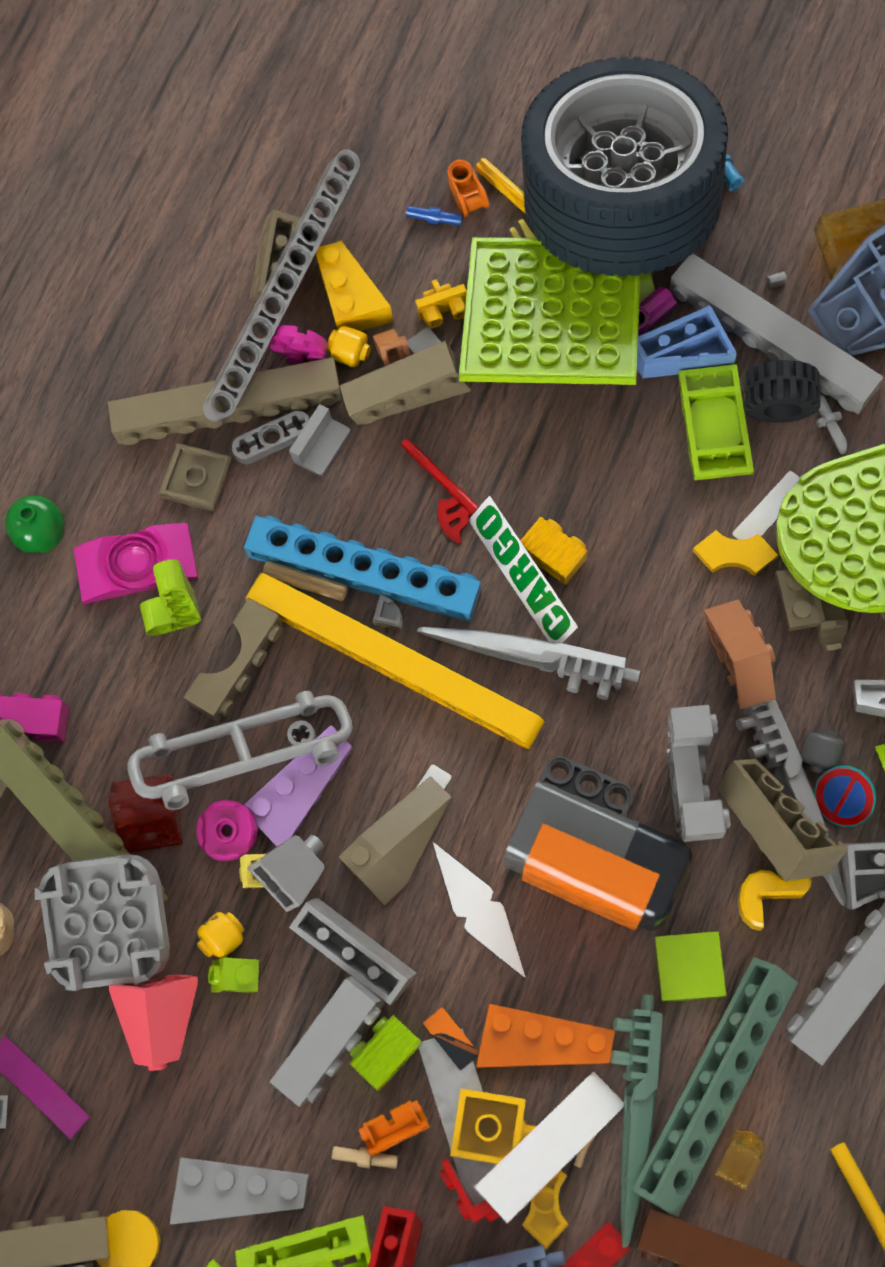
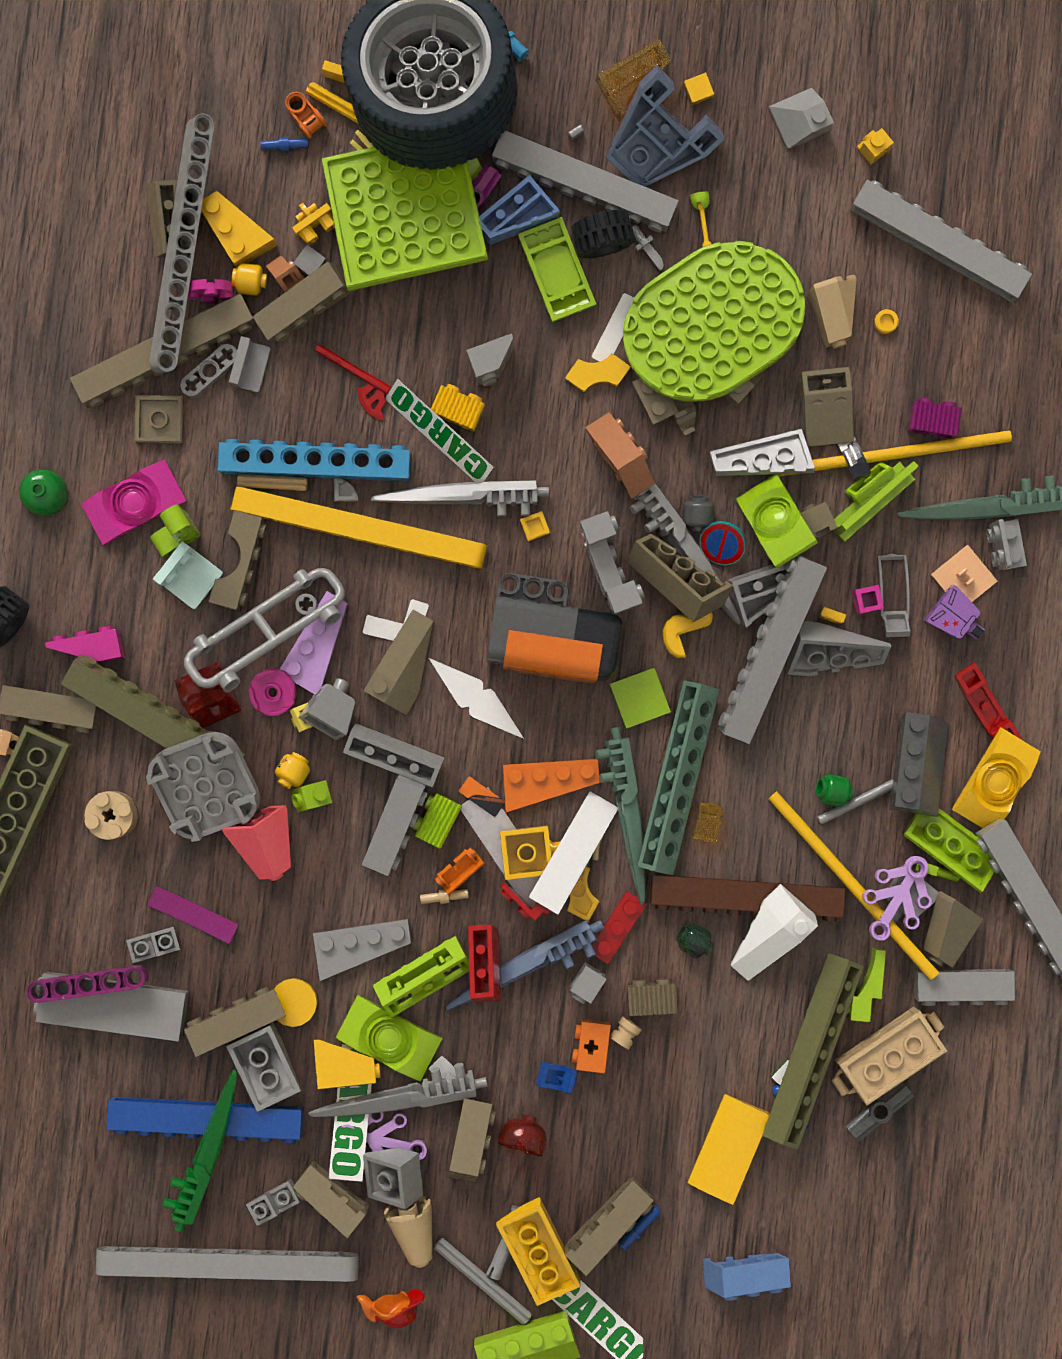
camera: 25 degrees left, 15 degrees up
(168, 660) = (188, 575): none -> light aqua bracket
(384, 788) = (381, 627): none -> white sticker
(511, 152) = (332, 71): none -> yellow tile
(608, 500) = (490, 359): none -> light grey slope
(610, 715) = (535, 526): none -> yellow tile

